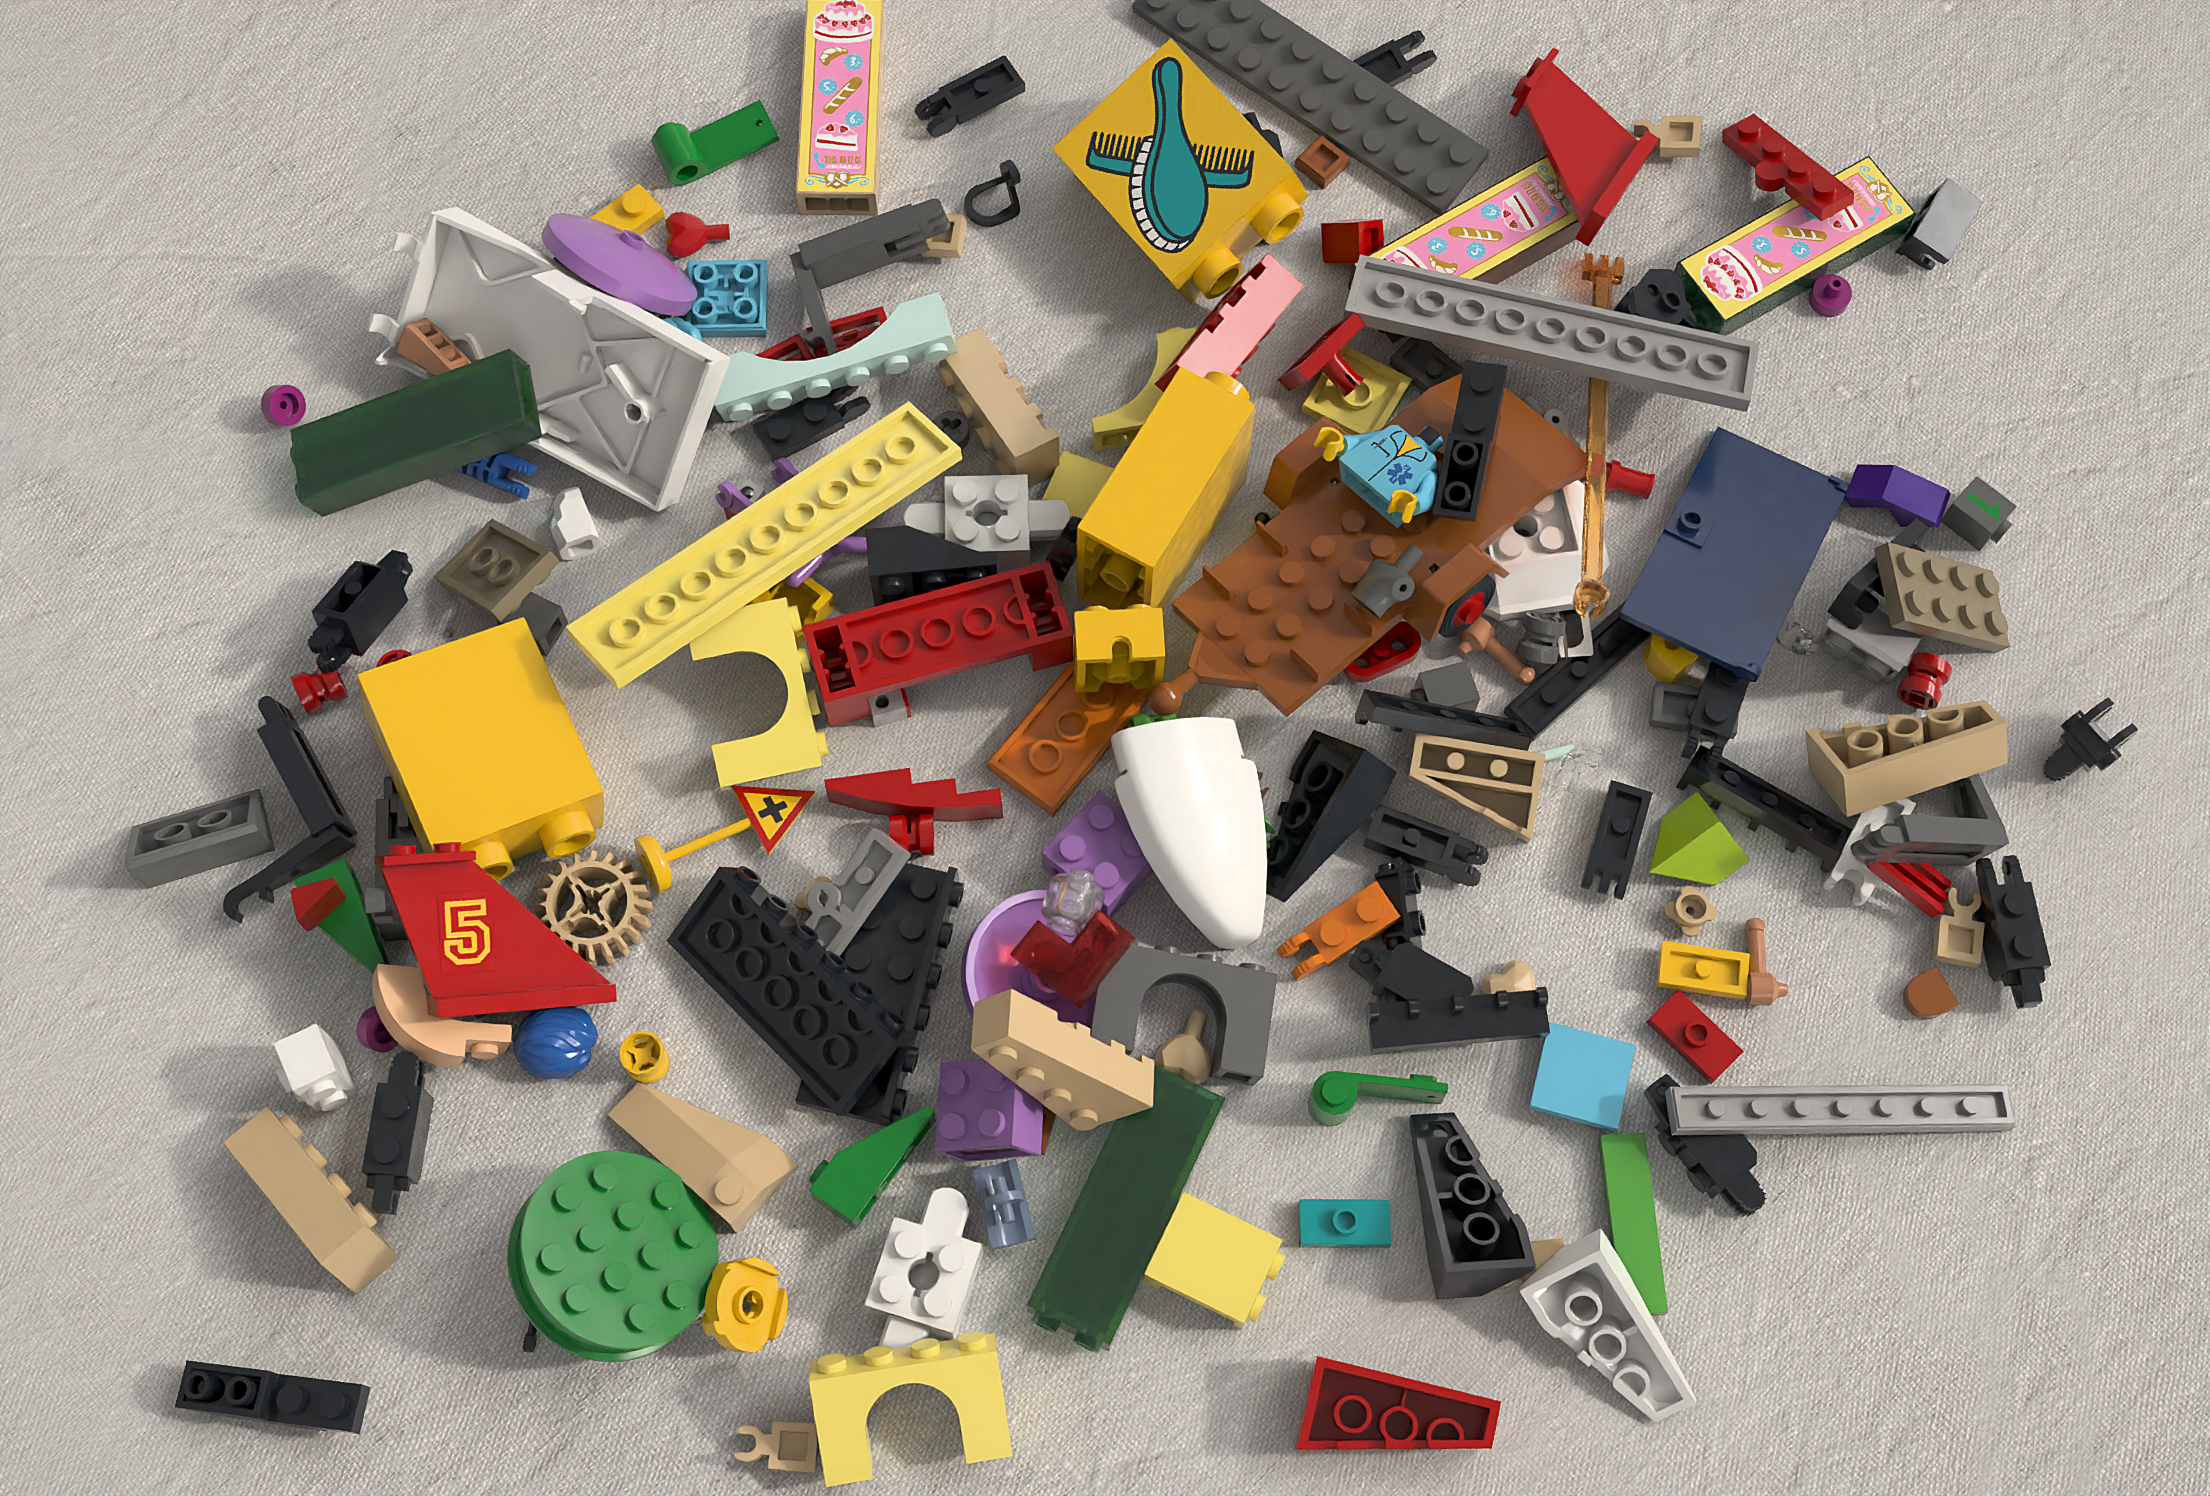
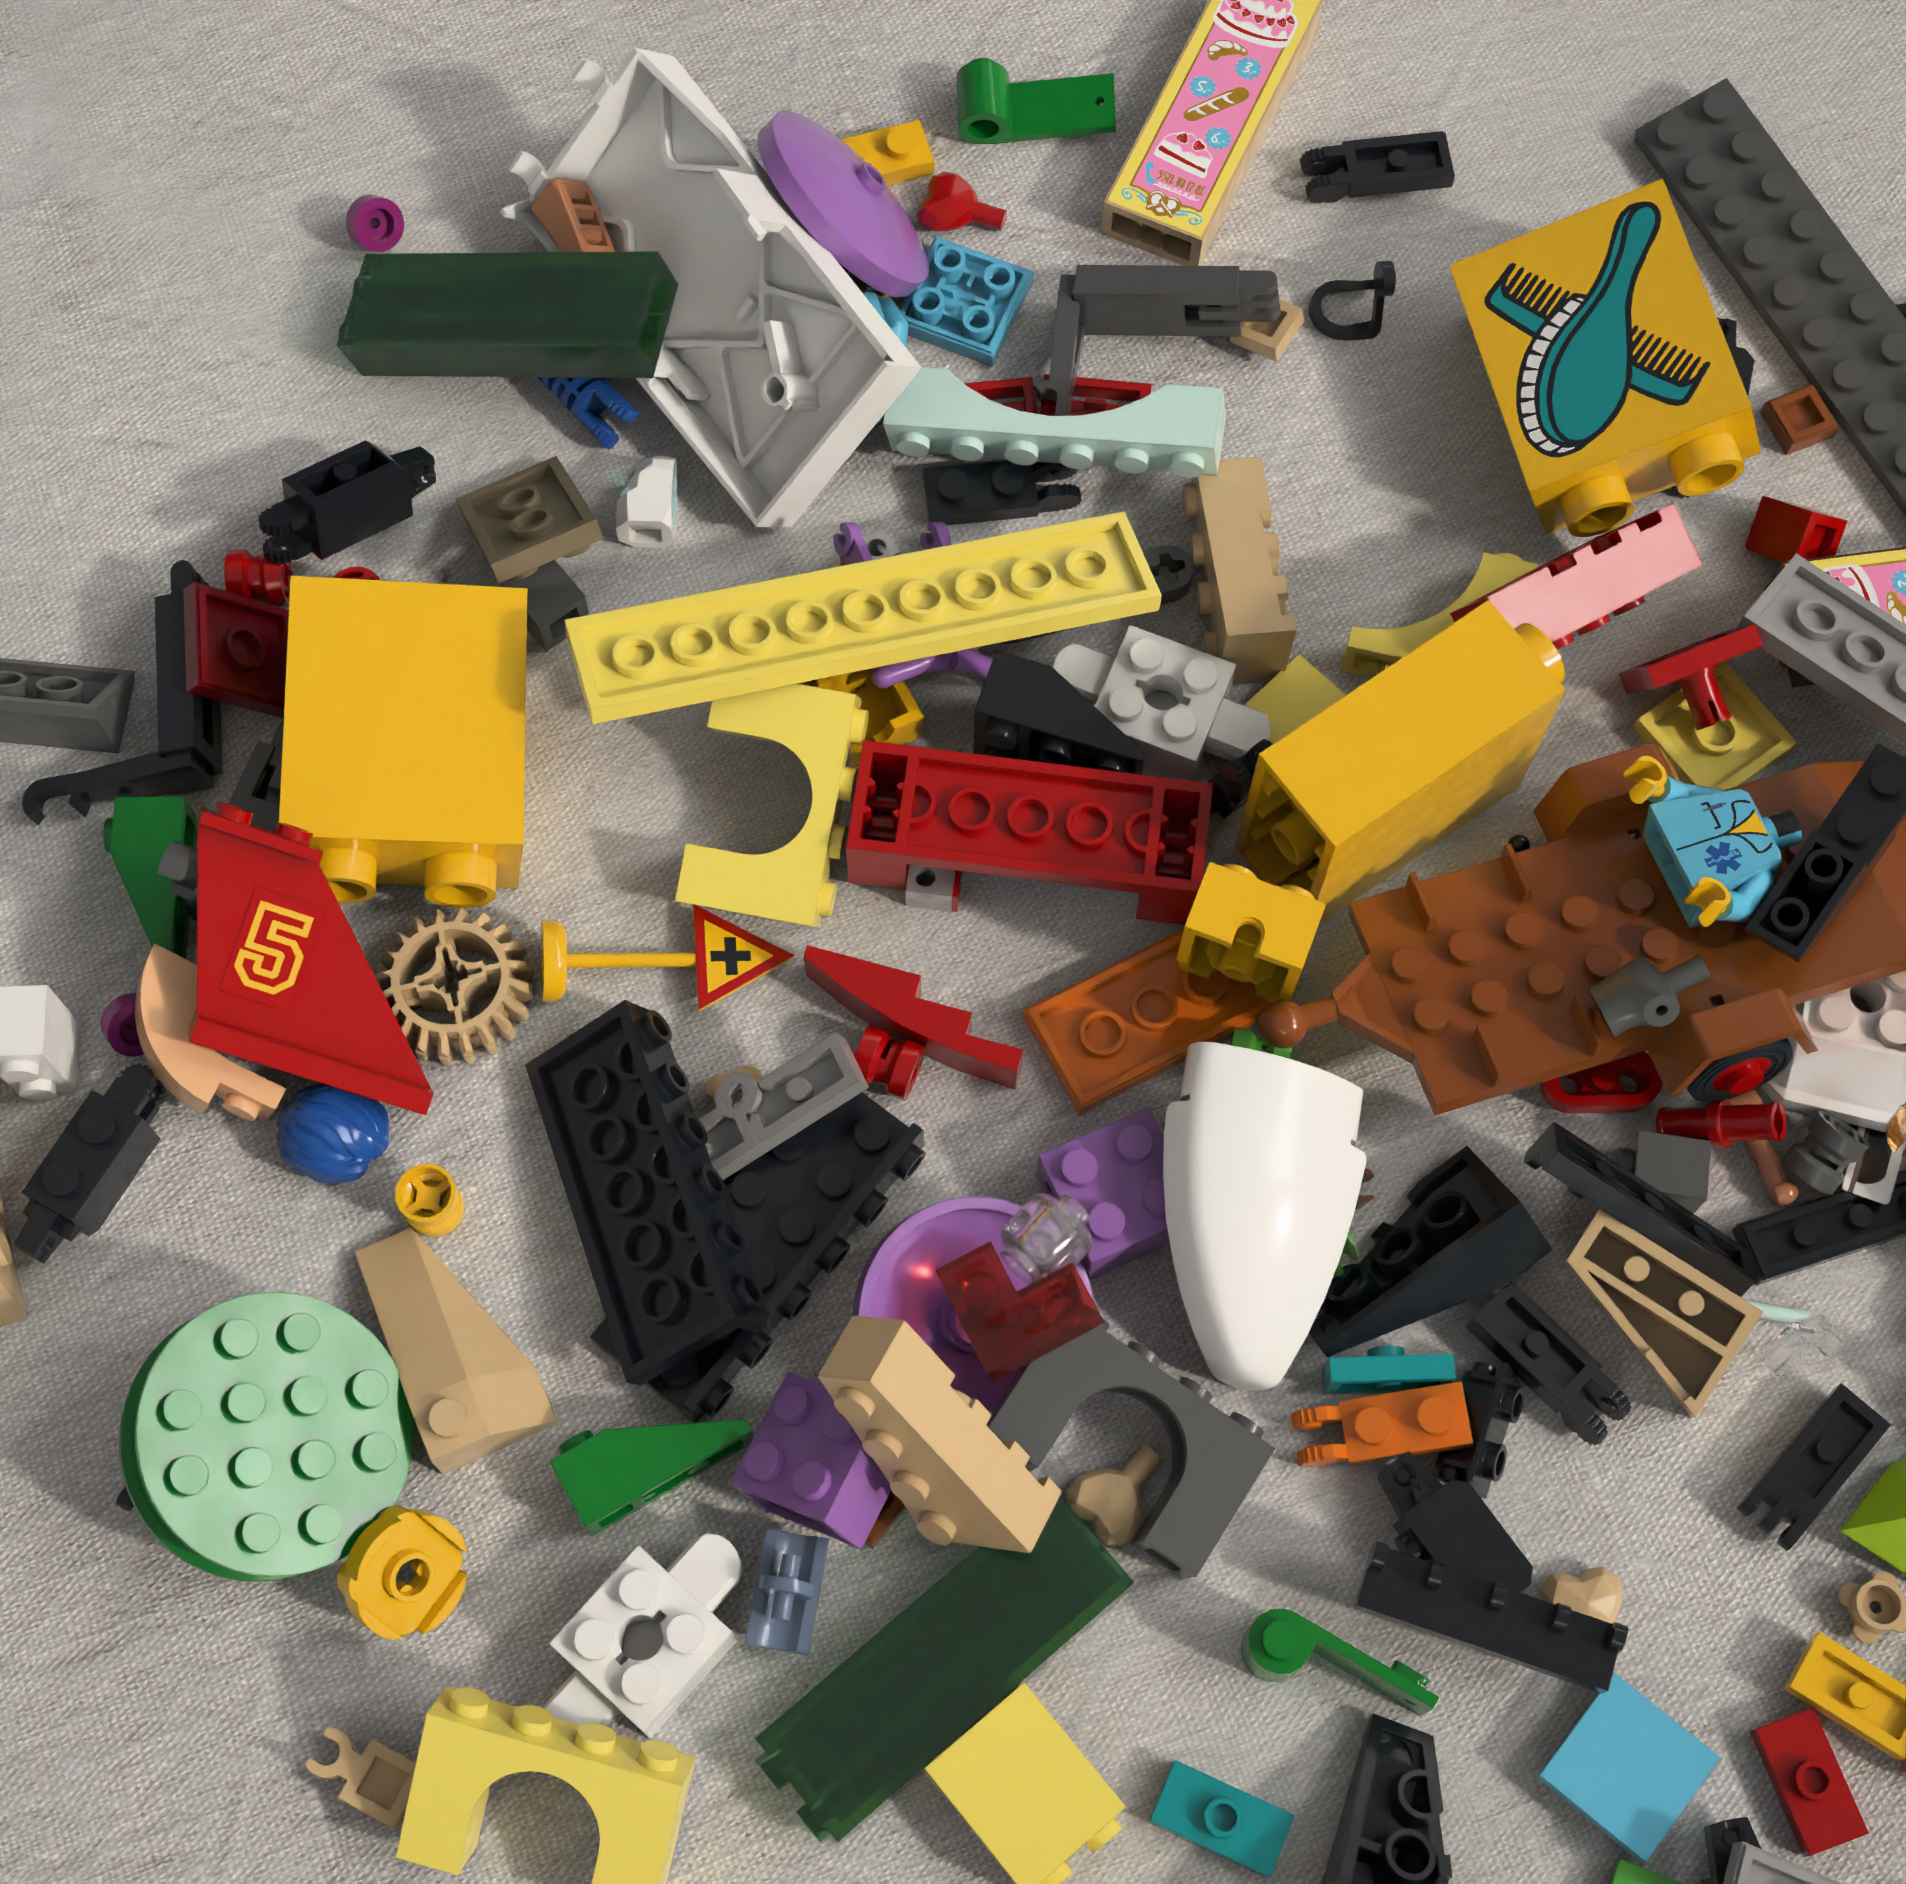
camera: 25 degrees right, 0 degrees up
(316, 901) = (121, 835): red slope -> none
(332, 742) = (235, 649): none -> dark red tile
(1324, 896) = (1386, 1371): none -> teal plate
(1424, 363) = (1822, 728): dark grey plate -> none
(1470, 645) = (1724, 1122): none -> red pin

